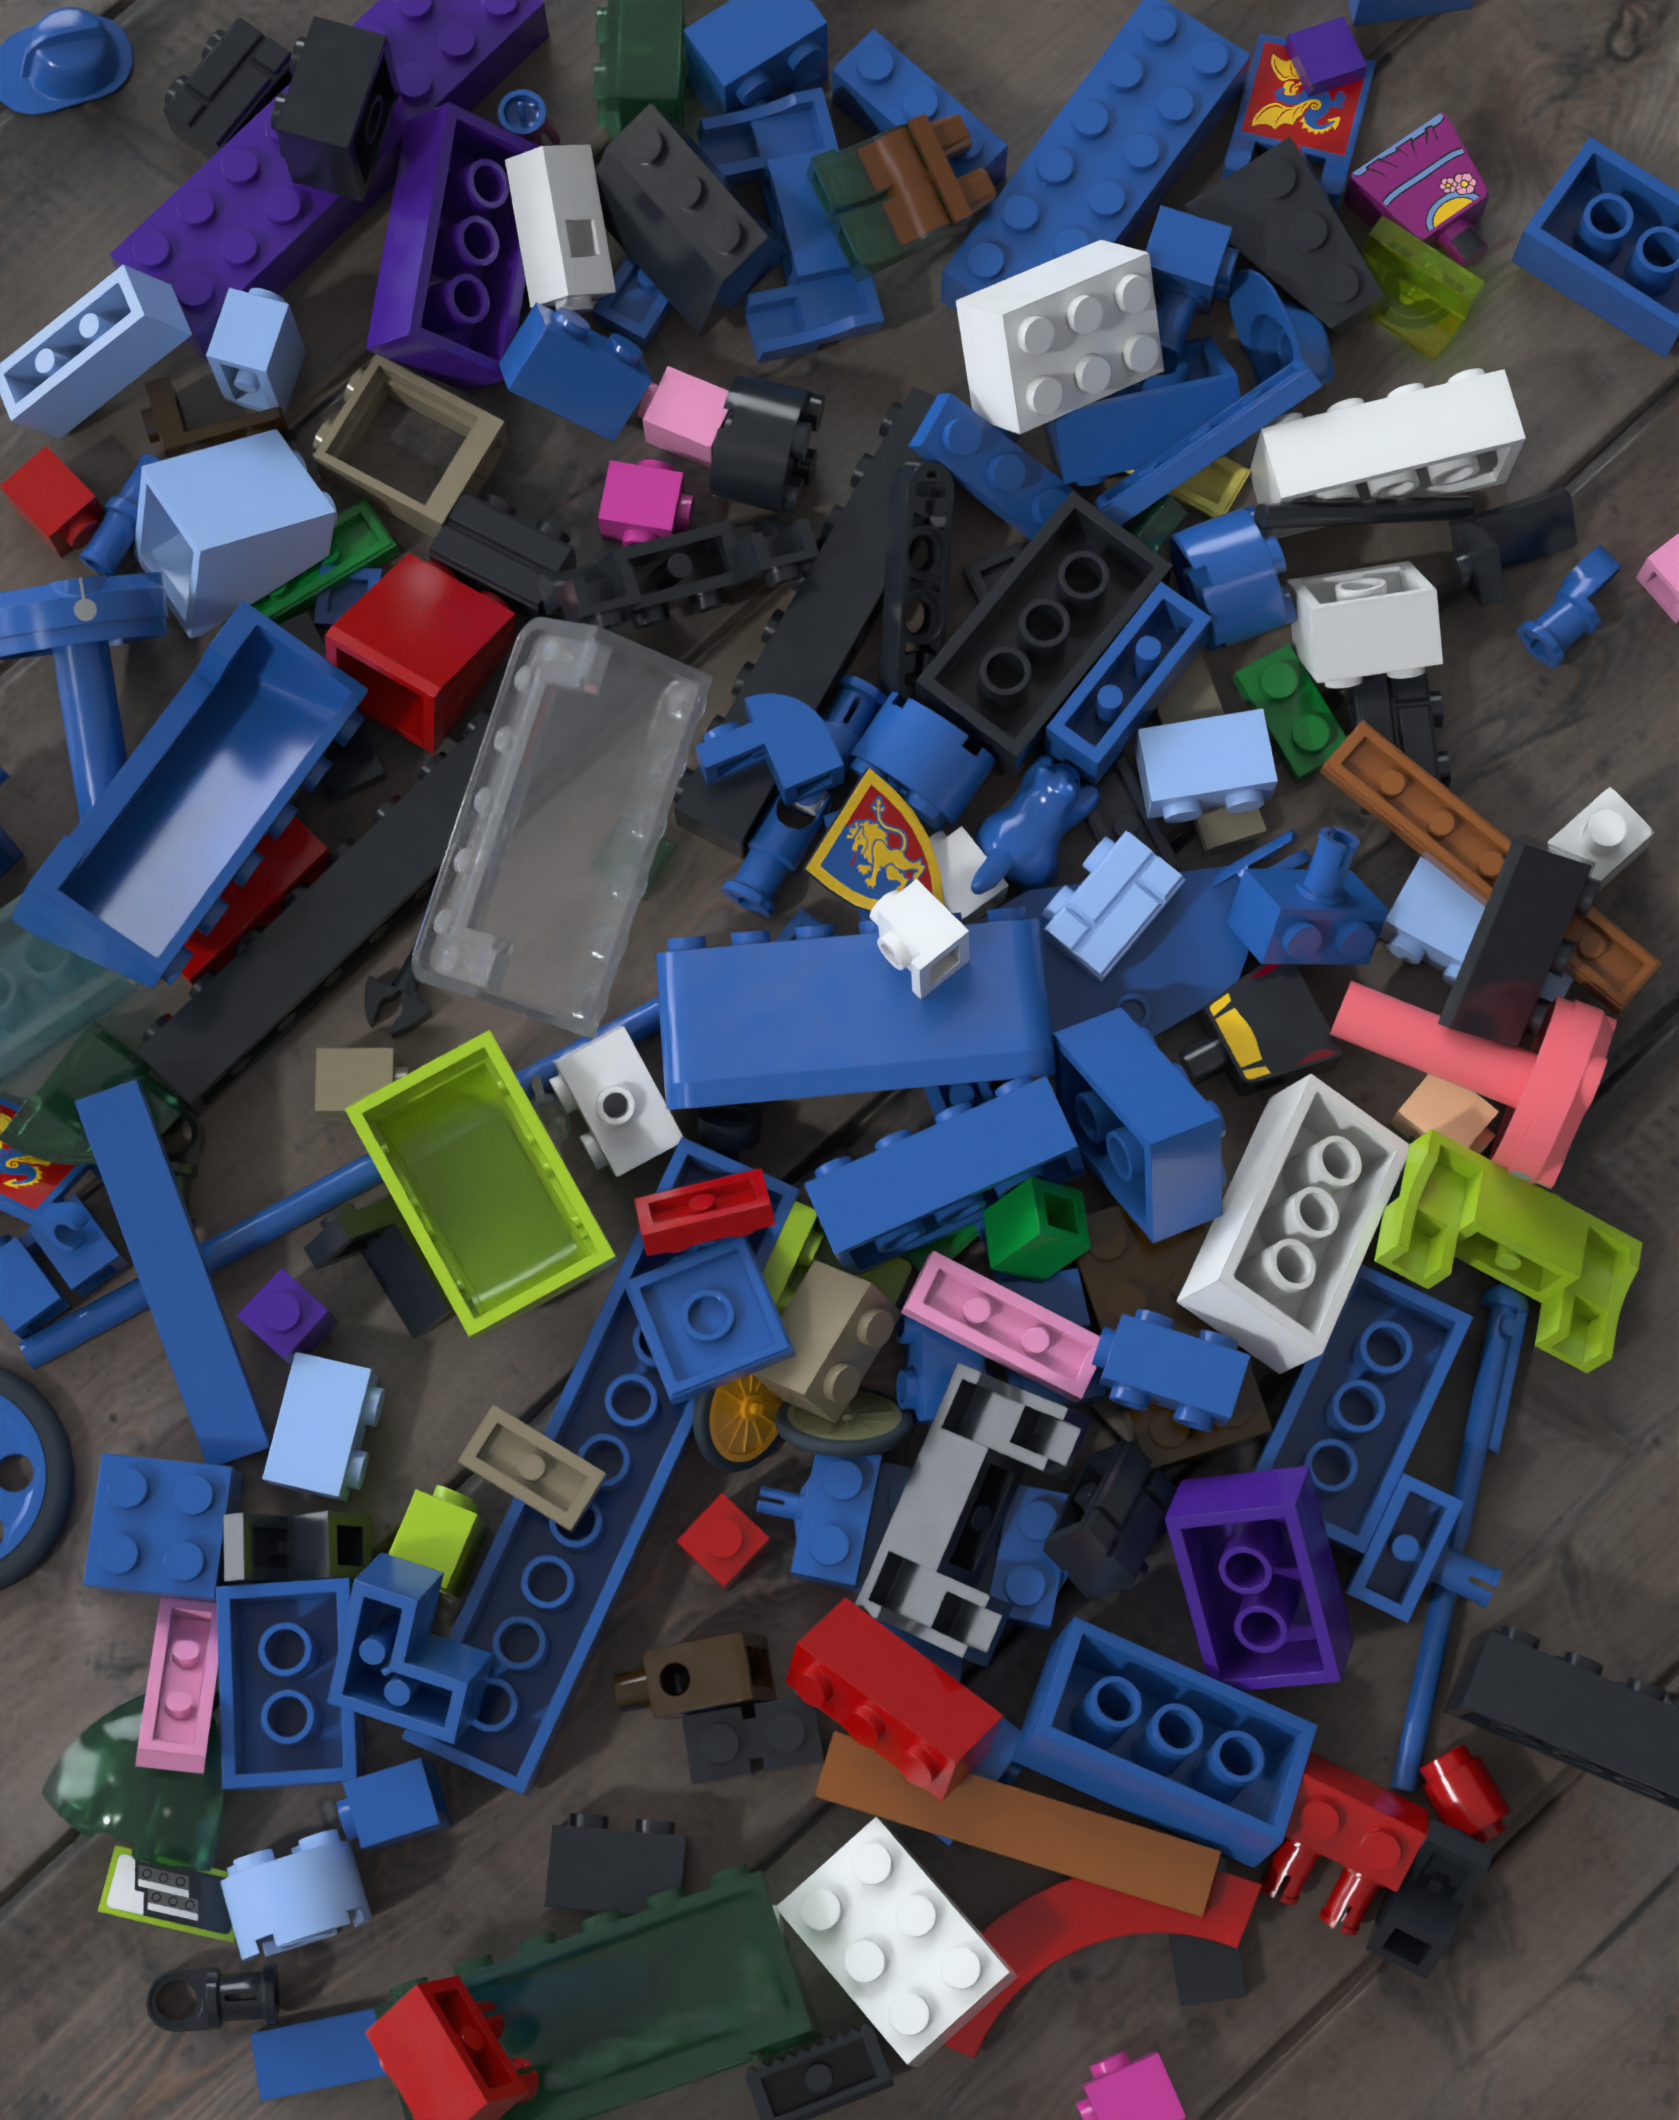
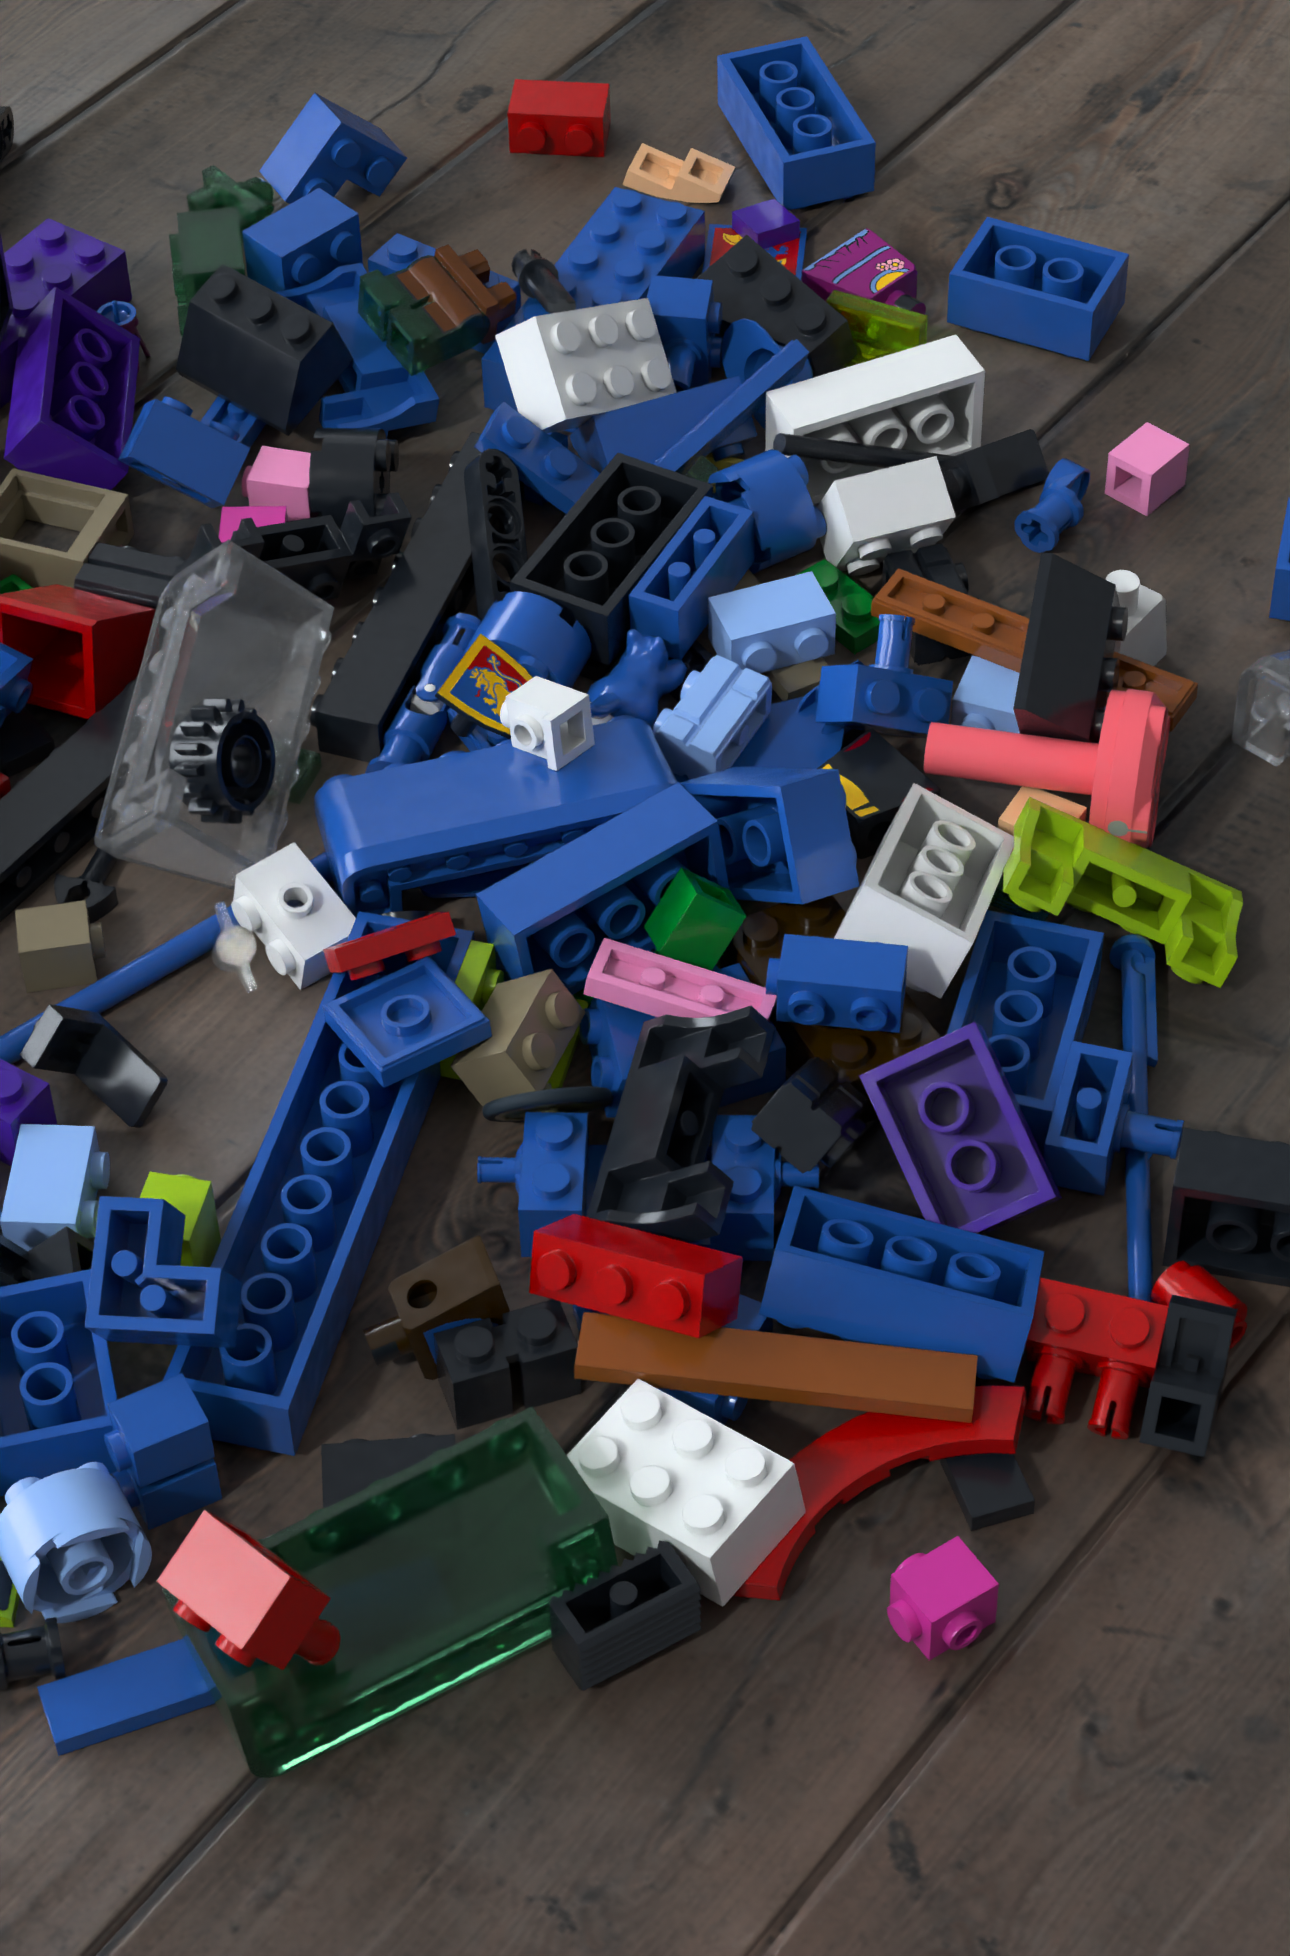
camera: 10 degrees left, 30 degrees down
(481, 1185) = (183, 963): lime container -> none
(532, 1468) = (259, 1147): dark tan plate -> none
(559, 900) = (225, 758): none -> black gear
(560, 226) = (156, 360): white brick -> none
(724, 1542) = (449, 1212): red brick -> none
(736, 1424) = (448, 1117): light orange wheel -> none
(785, 737) = (398, 639): blue brick -> none
(1028, 174) = (540, 280): none -> black axle

